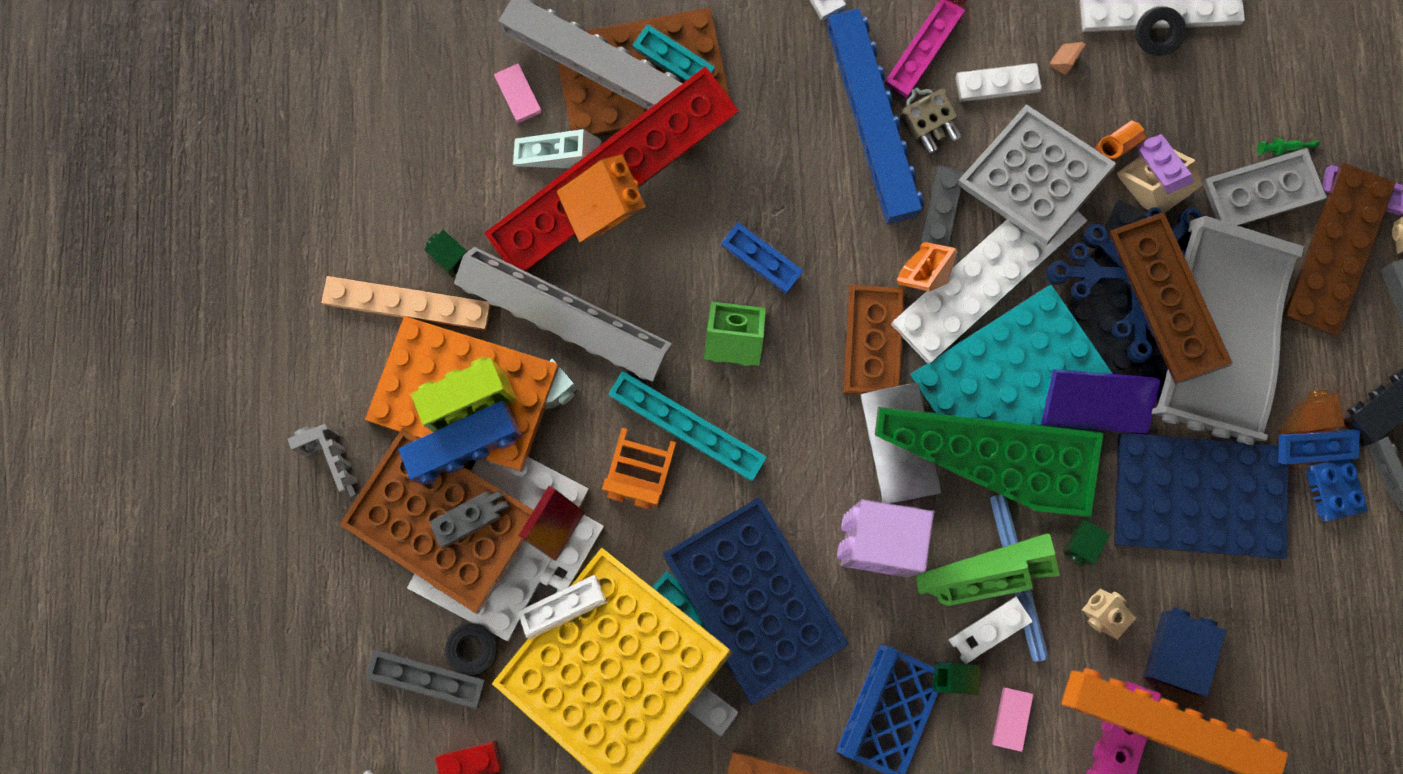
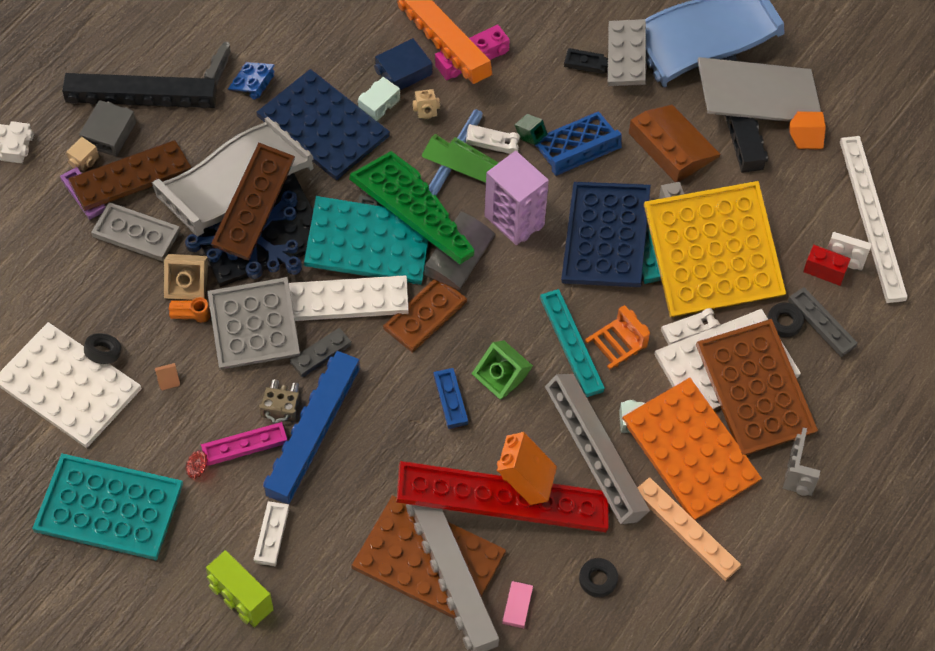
camera: 140 degrees left, 20 degrees down
(445, 252) = (640, 535): dark green brick -> none
(454, 164) = (604, 566): none -> black tyre
(459, 443) = (714, 409): blue brick -> none
(462, 394) = (694, 425): lime brick -> none
(468, 518) = (739, 368): dark grey hinge -> none
(551, 523) = (692, 336): dark red tile -> none
(554, 149) = (522, 546): light aqua slope -> none
(562, 607) = (718, 299): white tile -> none
(669, 54) = (405, 542): teal plate -> none
(928, 267) = (364, 321): orange slope -> none
(998, 82) = (220, 395): white plate -> none
(1012, 719) = (517, 99): bright pink tile -> none
(1085, 543) = (405, 141): dark green brick -> none
(1100, 401) = (335, 190): dark purple tile -> none
(1165, 164) = (180, 272): medium lavender plate -> none
(1169, 578) = (379, 98): none -> light aqua brick
(1279, 146) = (102, 246): green piece -> none
(1314, 414) = (230, 115): clear orange slope -> none
(1318, 446) = (242, 98): blue plate -> none

